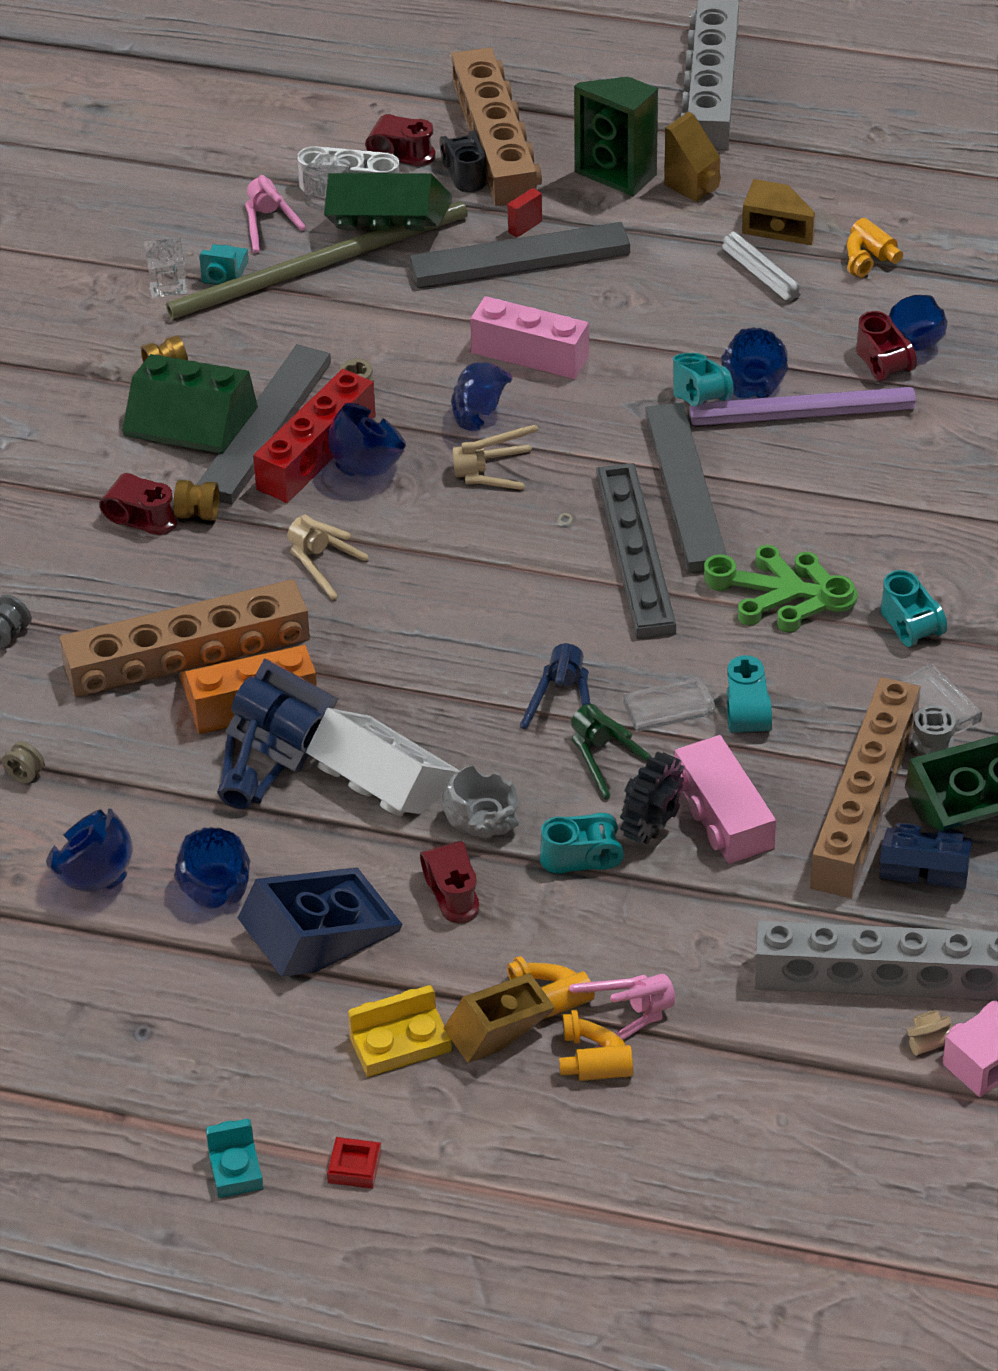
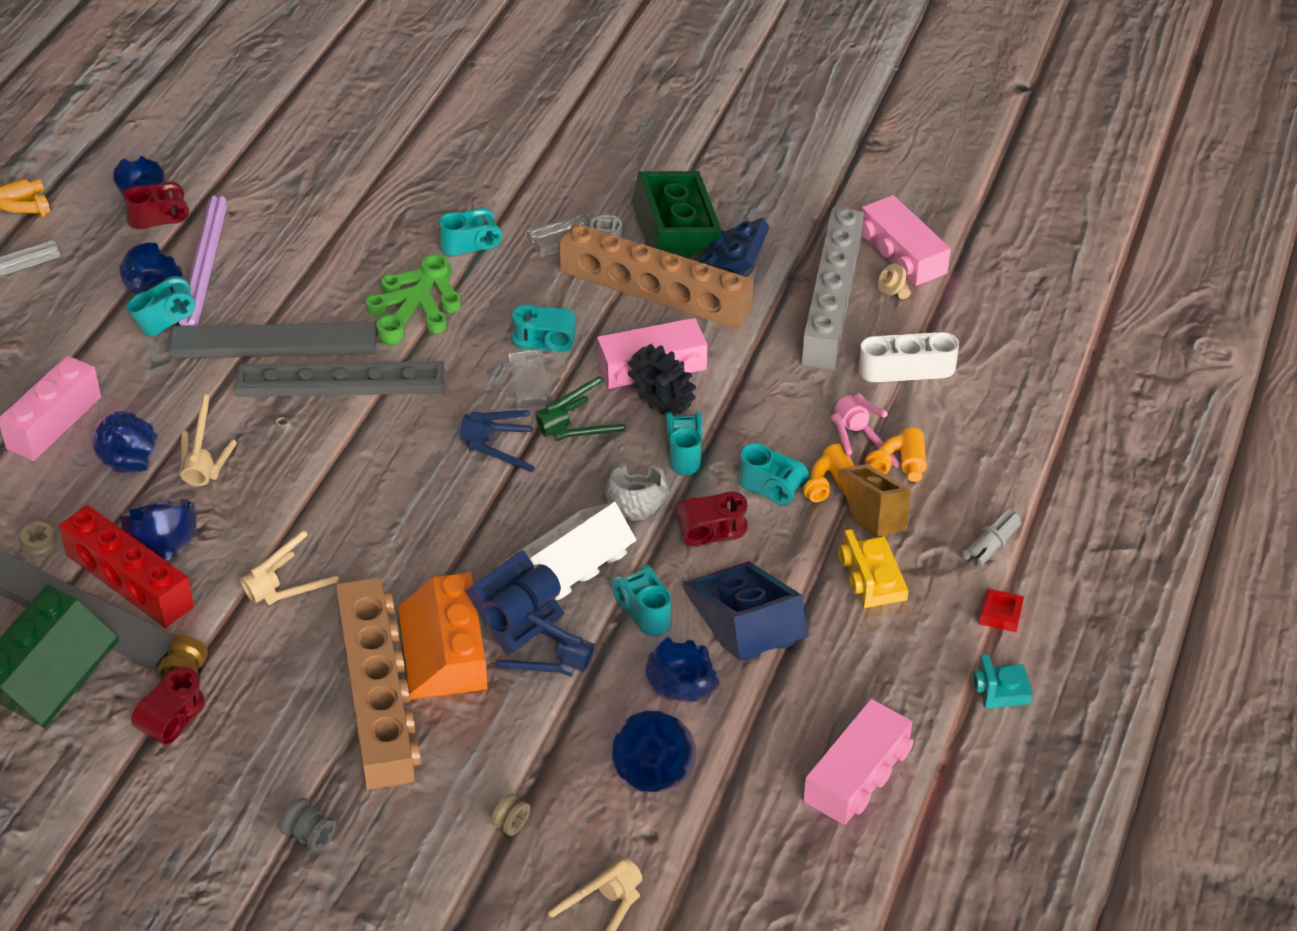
camera: 85 degrees left, 0 degrees up
(104, 1029) = (858, 762): none -> bright pink brick
(319, 834) = (644, 600): none -> teal piece
(463, 1145) = (992, 538): none -> light grey axle
(534, 923) = (769, 473): none -> teal piece
(773, 1047) = (908, 357): none -> white beam

